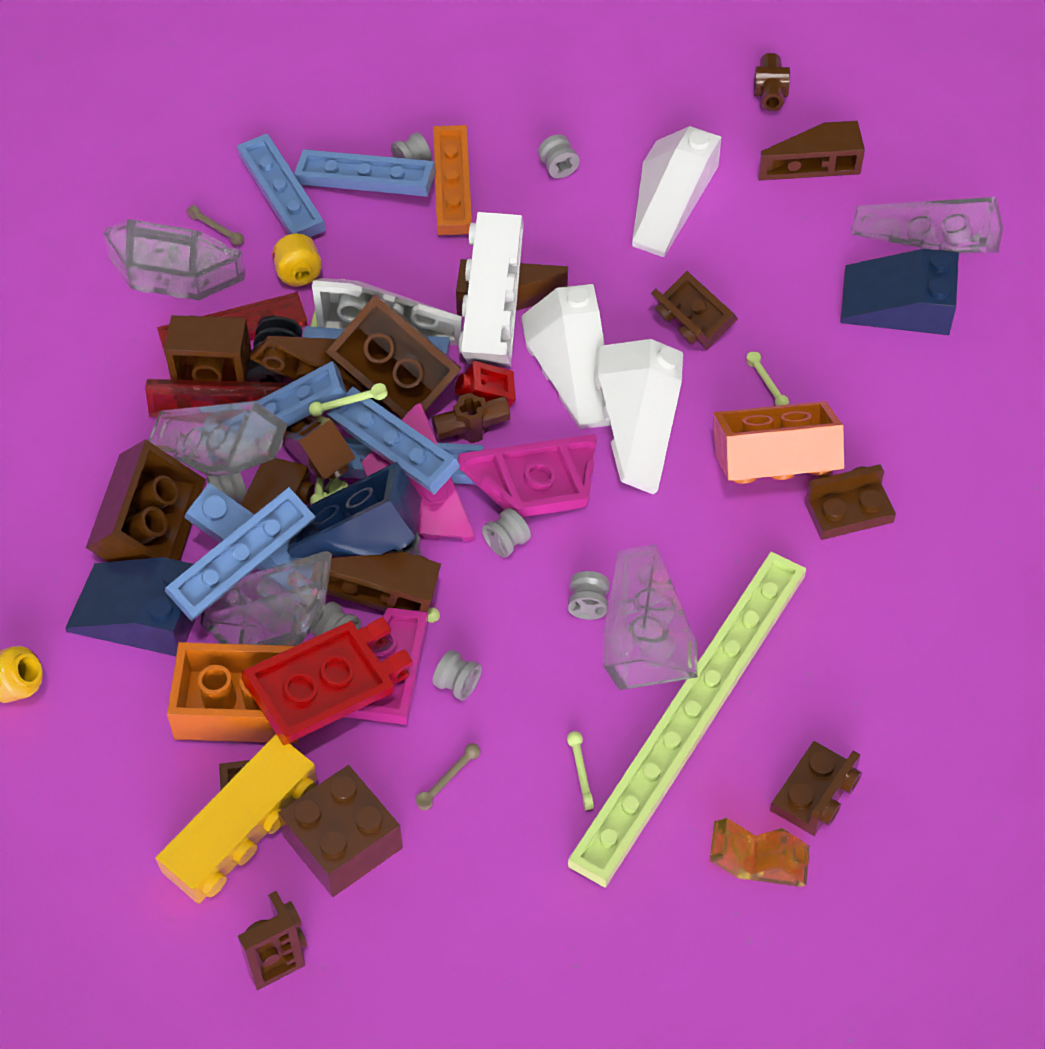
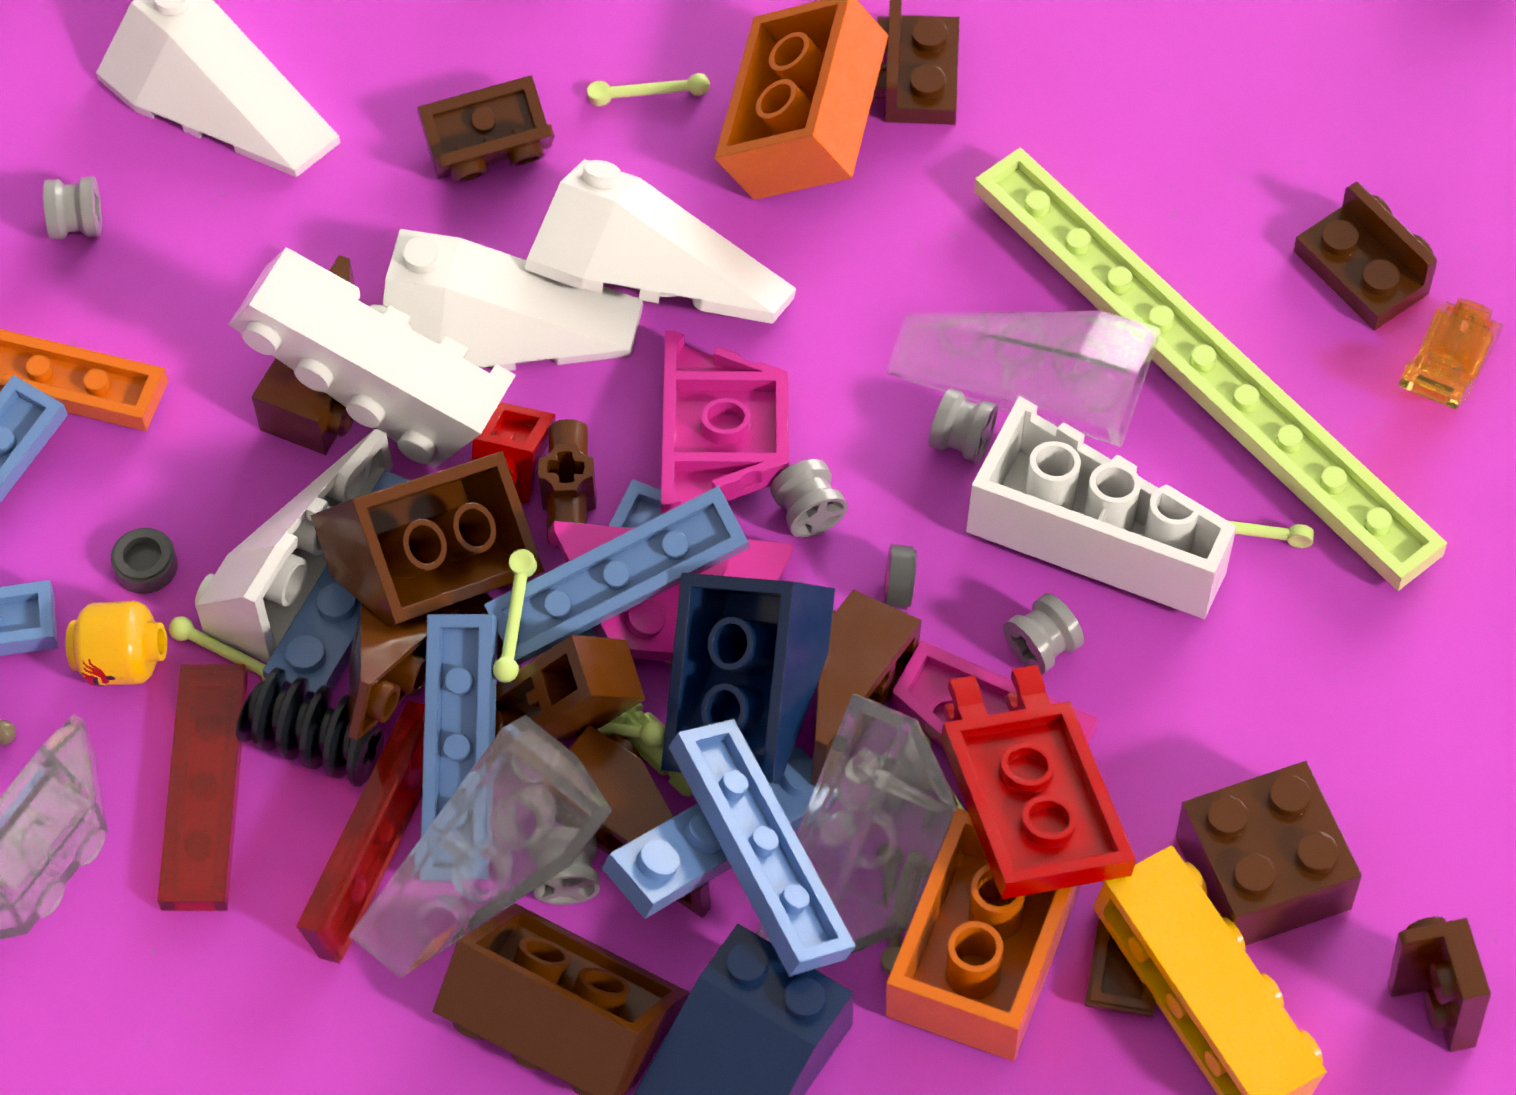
camera: 70 degrees left, 5 degrees up
(208, 348) = (290, 812): reddish brown brick -> none
(358, 260) = (144, 560): none -> dark grey tile
(425, 799) = (1230, 741): dark tan hinge -> none
(469, 591) = (900, 576): none -> dark grey tile
(548, 664) = (1096, 515): none -> wedge

